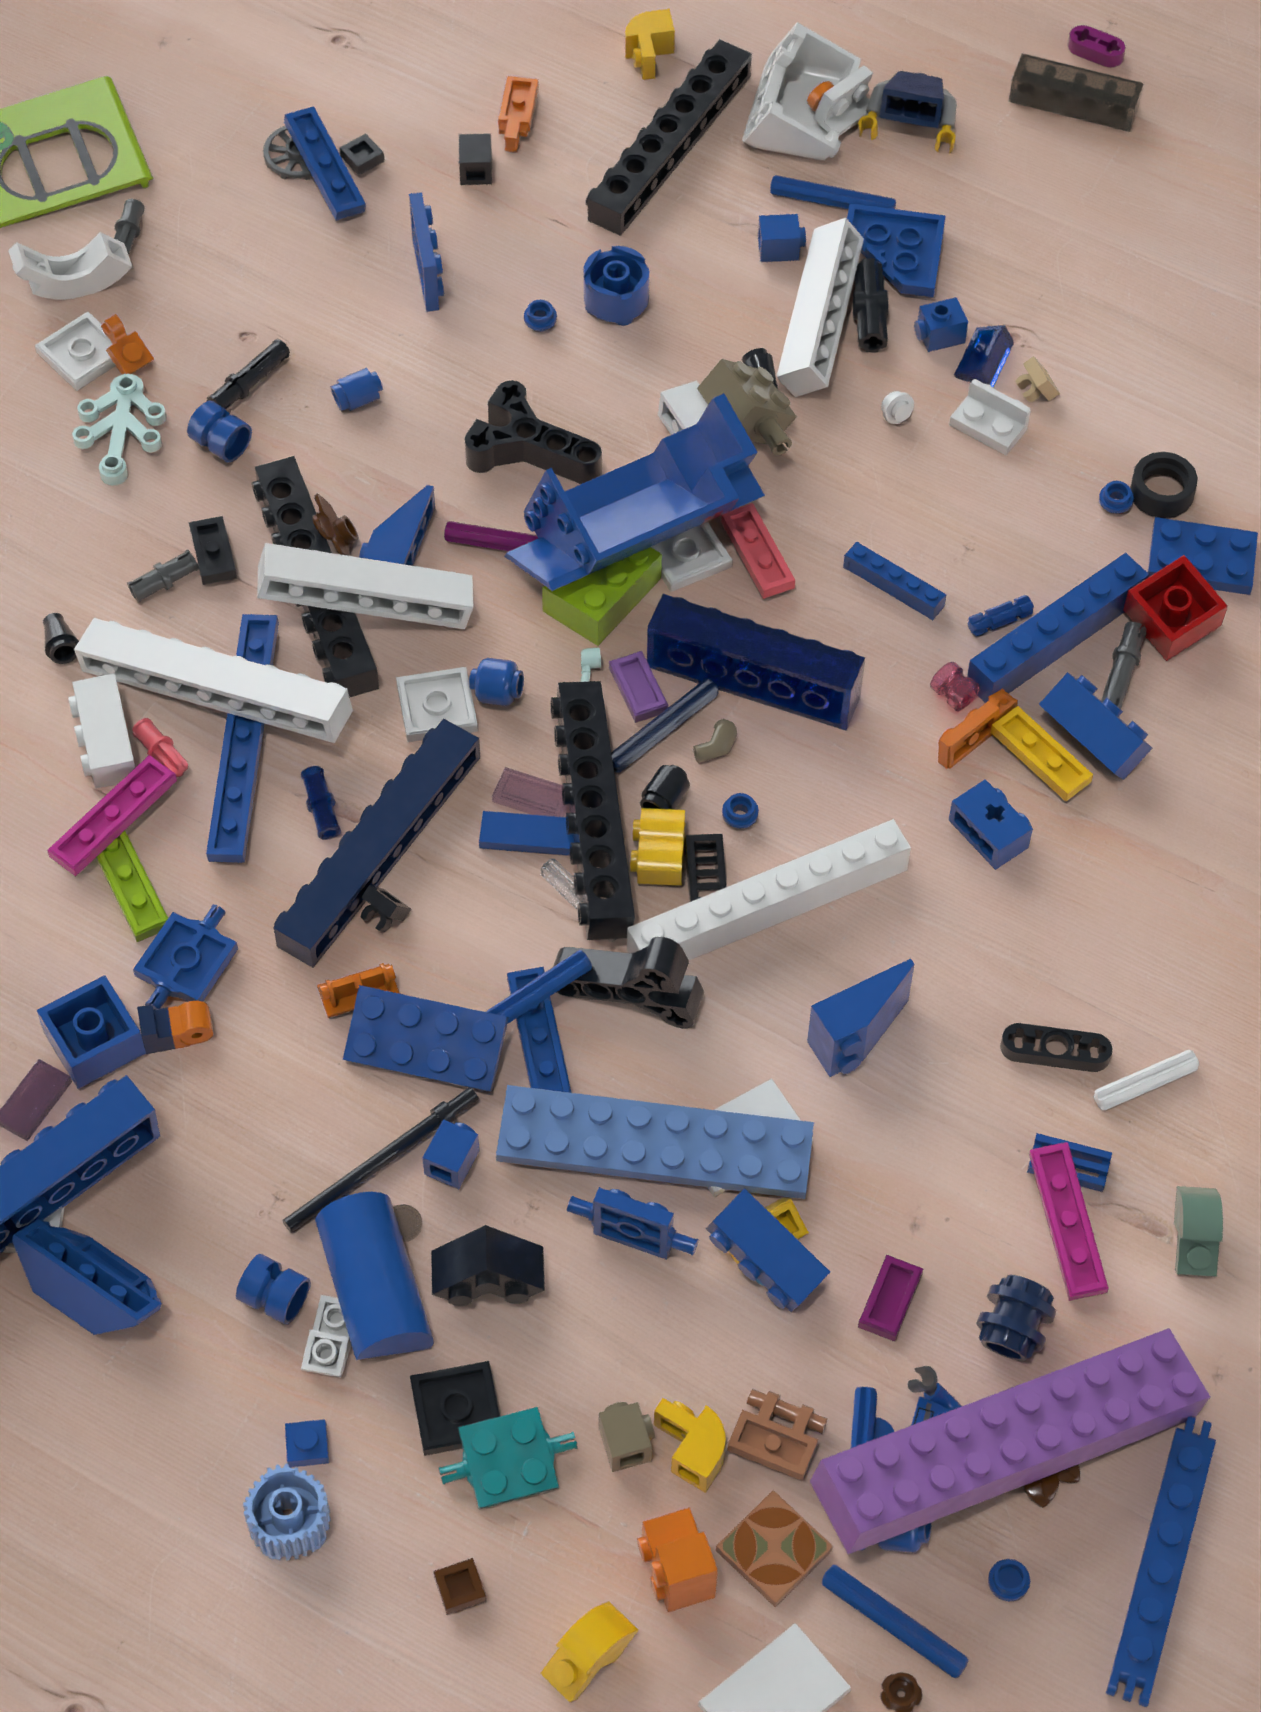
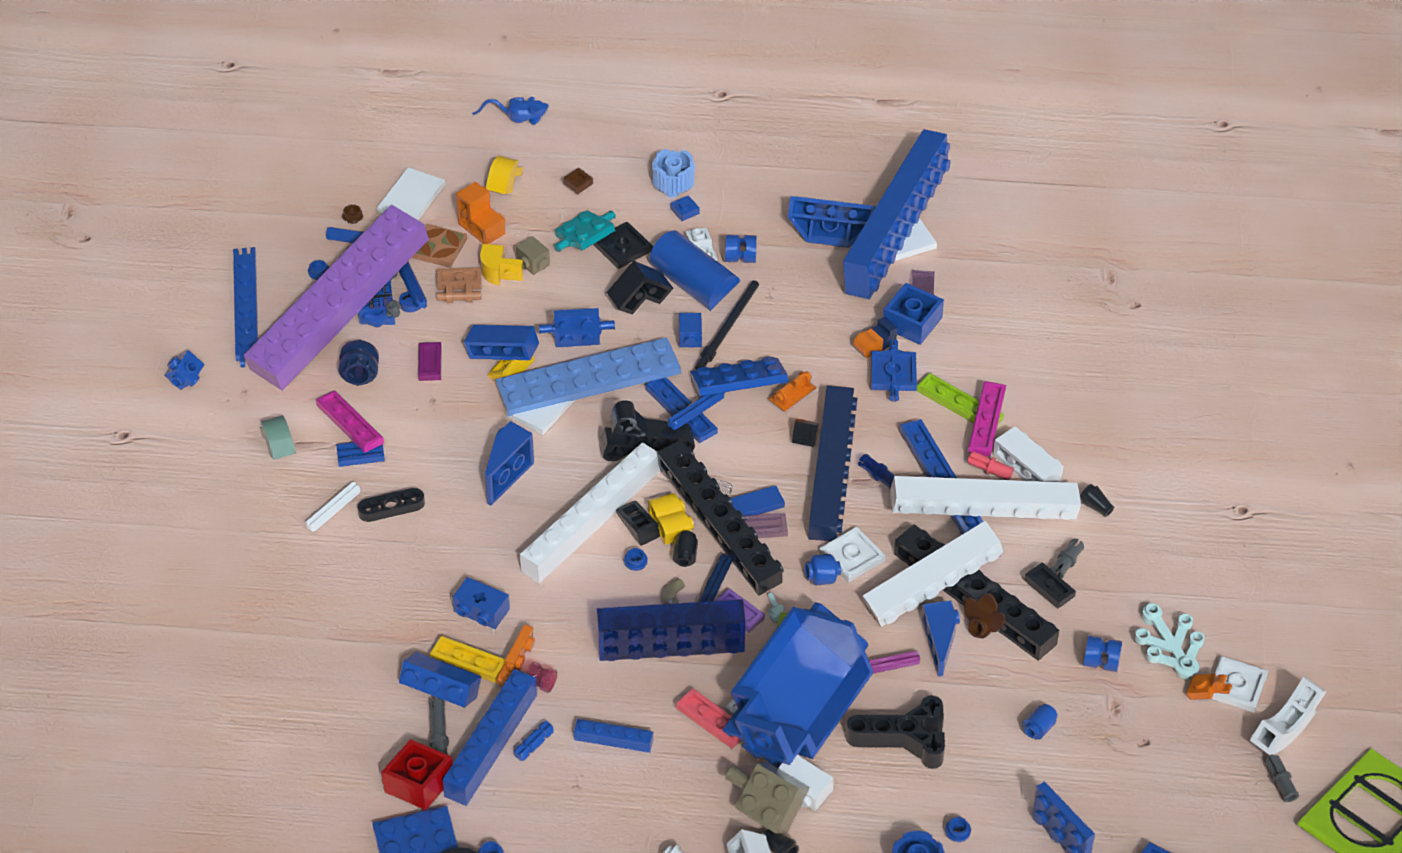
camera: 155 degrees right, 10 degrees down
(238, 384) = (1119, 686): black pin -> none
(408, 1221) = (696, 307): clear smoke piece -> none

